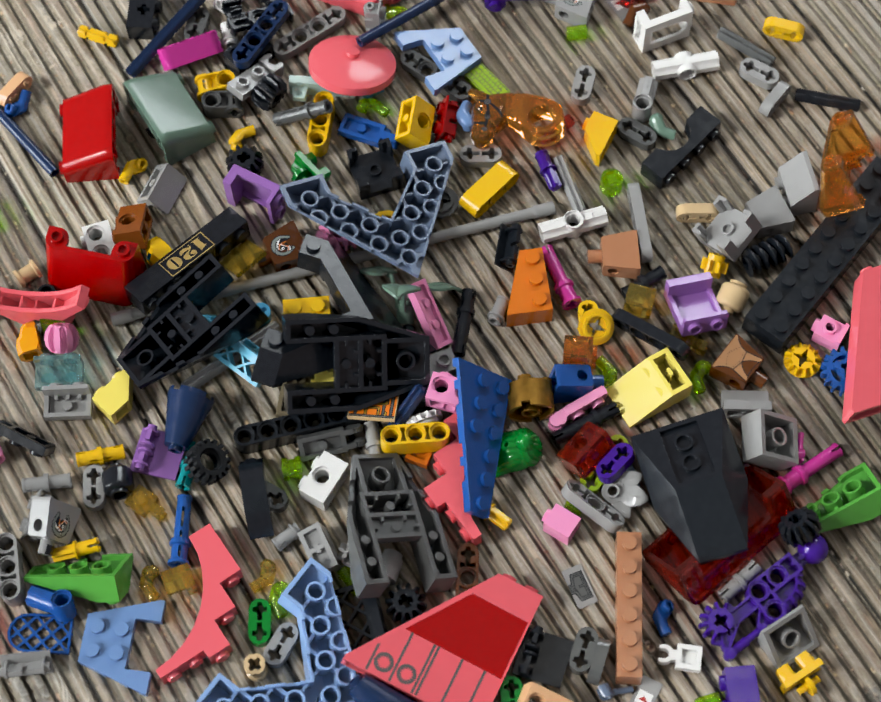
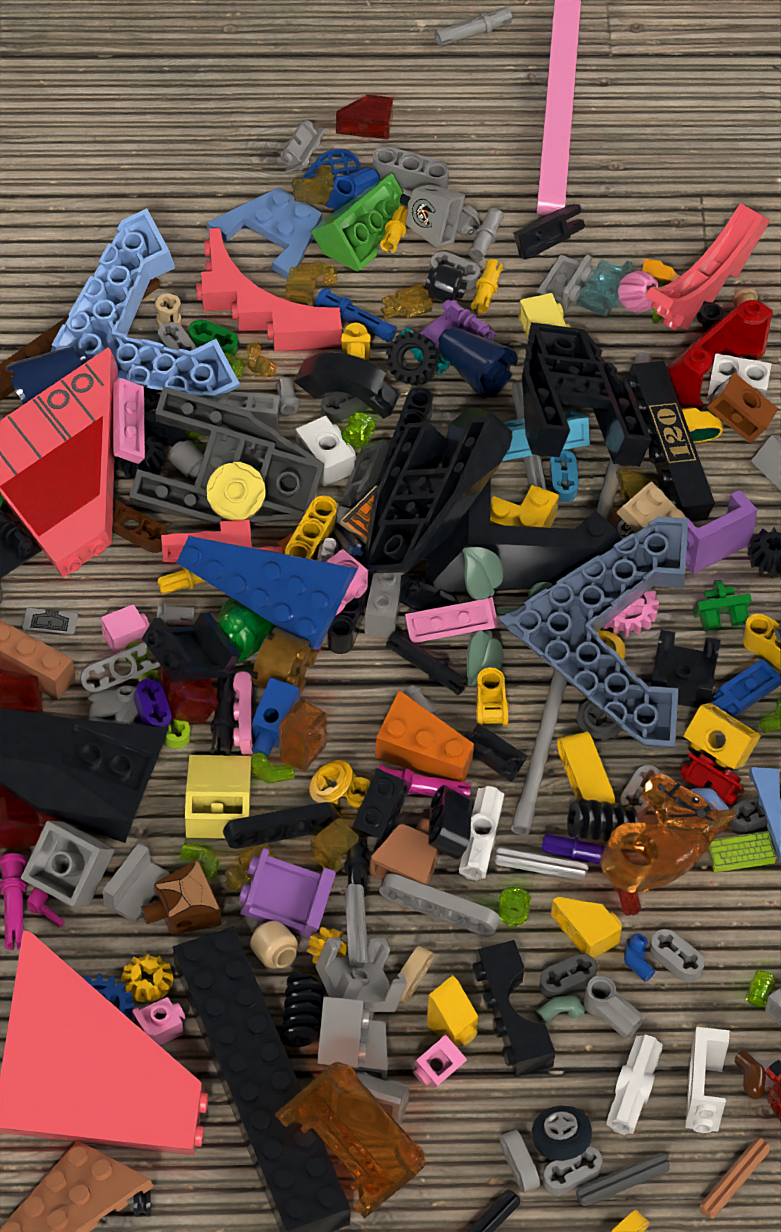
camera: 115 degrees right, 10 degrees down
(68, 628) = (314, 190): none -> clear yellow panel
(220, 505) = (356, 341): none -> yellow hips
(268, 232) = (647, 506): none -> tan plate
(393, 614) = (128, 421): none -> bright pink plate
(410, 504) = (235, 491): none -> light yellow tile
(472, 266) = (491, 703): none -> yellow piece
(524, 158) = (598, 818): none -> black piece
(526, 501) = (175, 614): none -> light grey pin
(563, 453) = (192, 651): none -> black panel
(584, 237) = (450, 822): none -> black beam
(597, 282) = (382, 804): none -> black brick
(600, 105) = (634, 957): none -> blue arm
(692, 252) = (356, 926): none -> light grey axle
(712, 175) = (452, 1013): none -> yellow slope
(740, 77) = (562, 1133): none -> black wheel
(745, 167) = (450, 1060): none -> bright pink brick
(780, 208) = (342, 1032): none -> light grey brick

